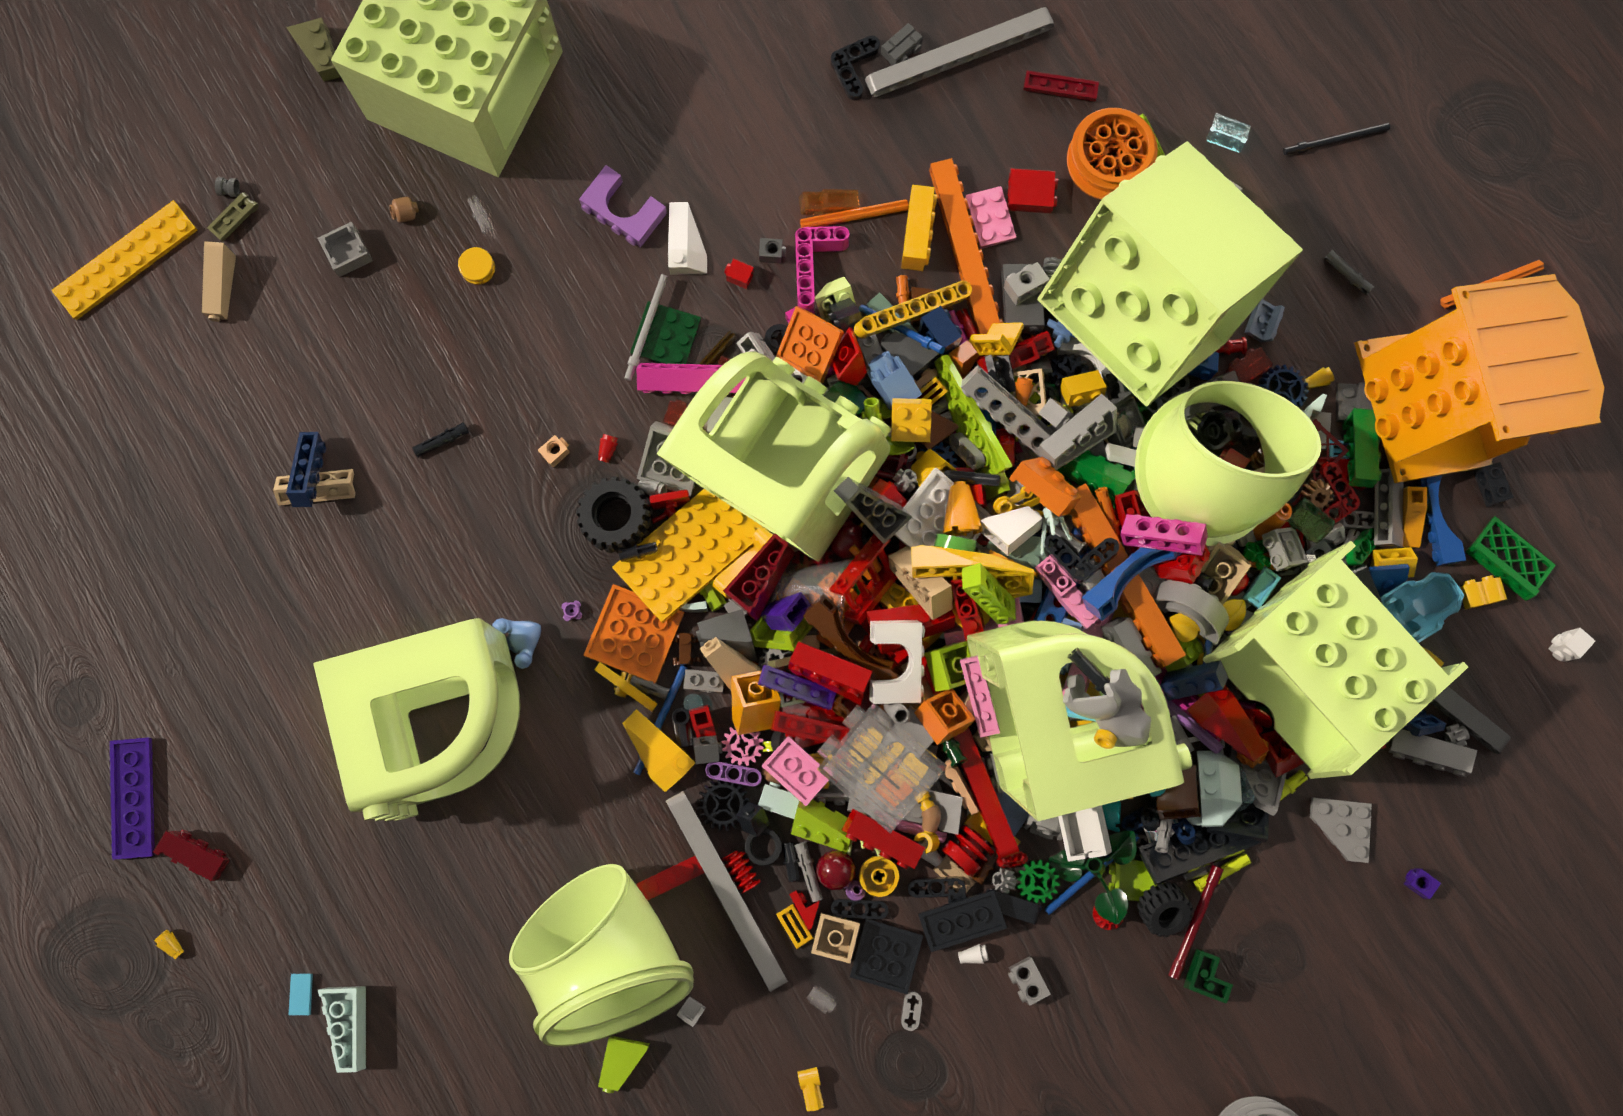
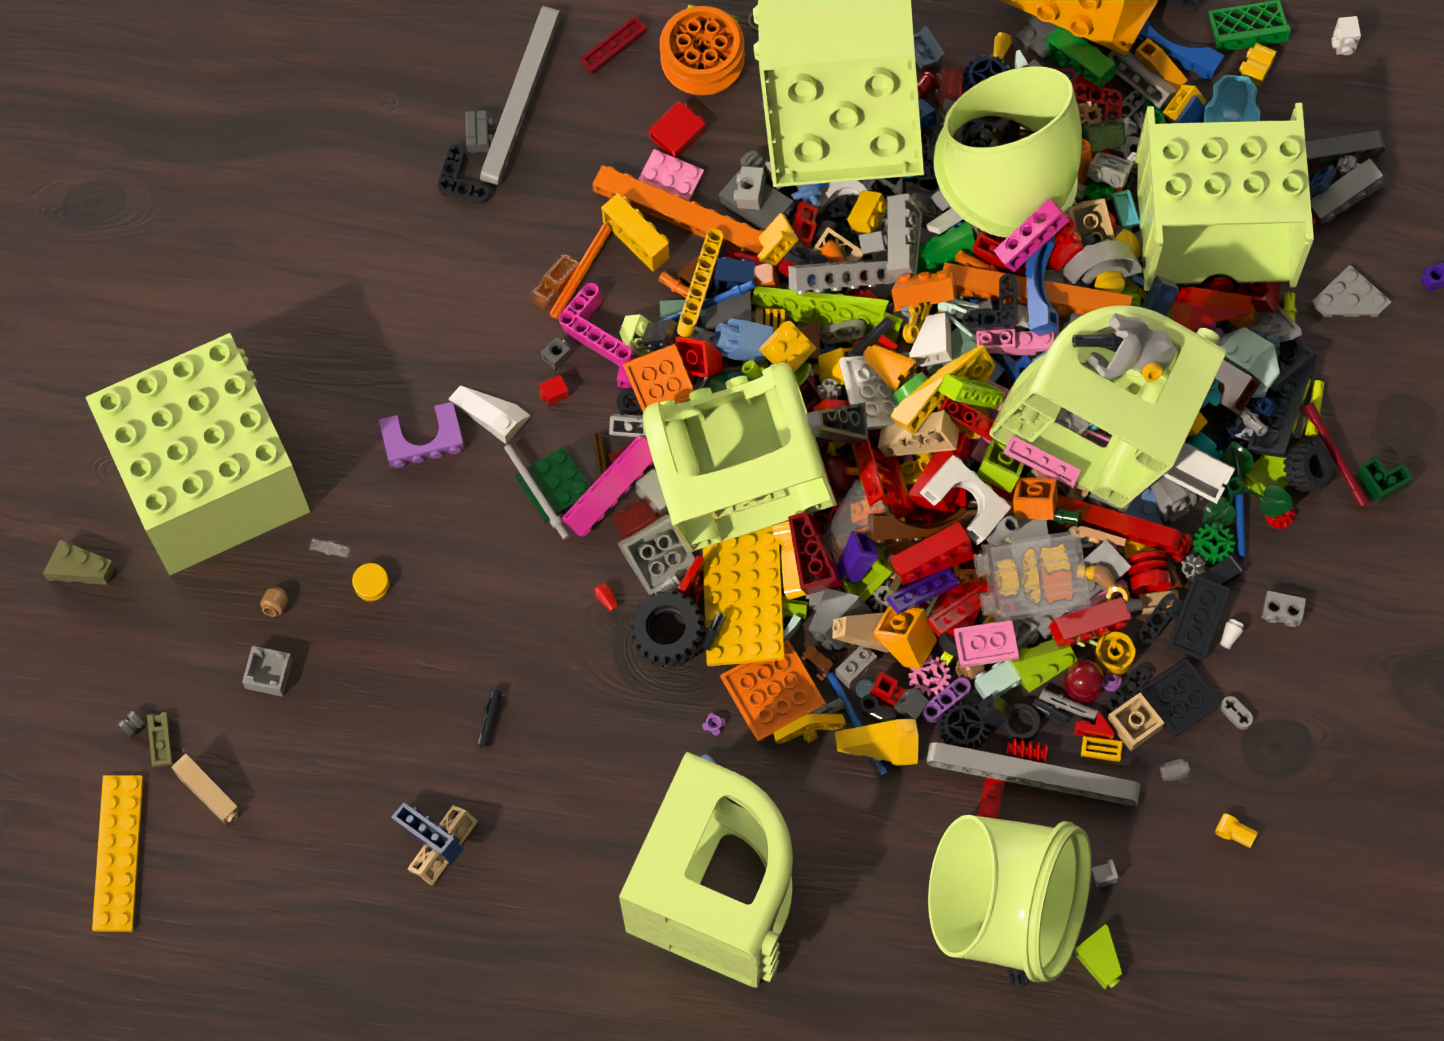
camera: 45 degrees left, 10 degrees down
(554, 459) = (578, 645): light nougat brick -> none

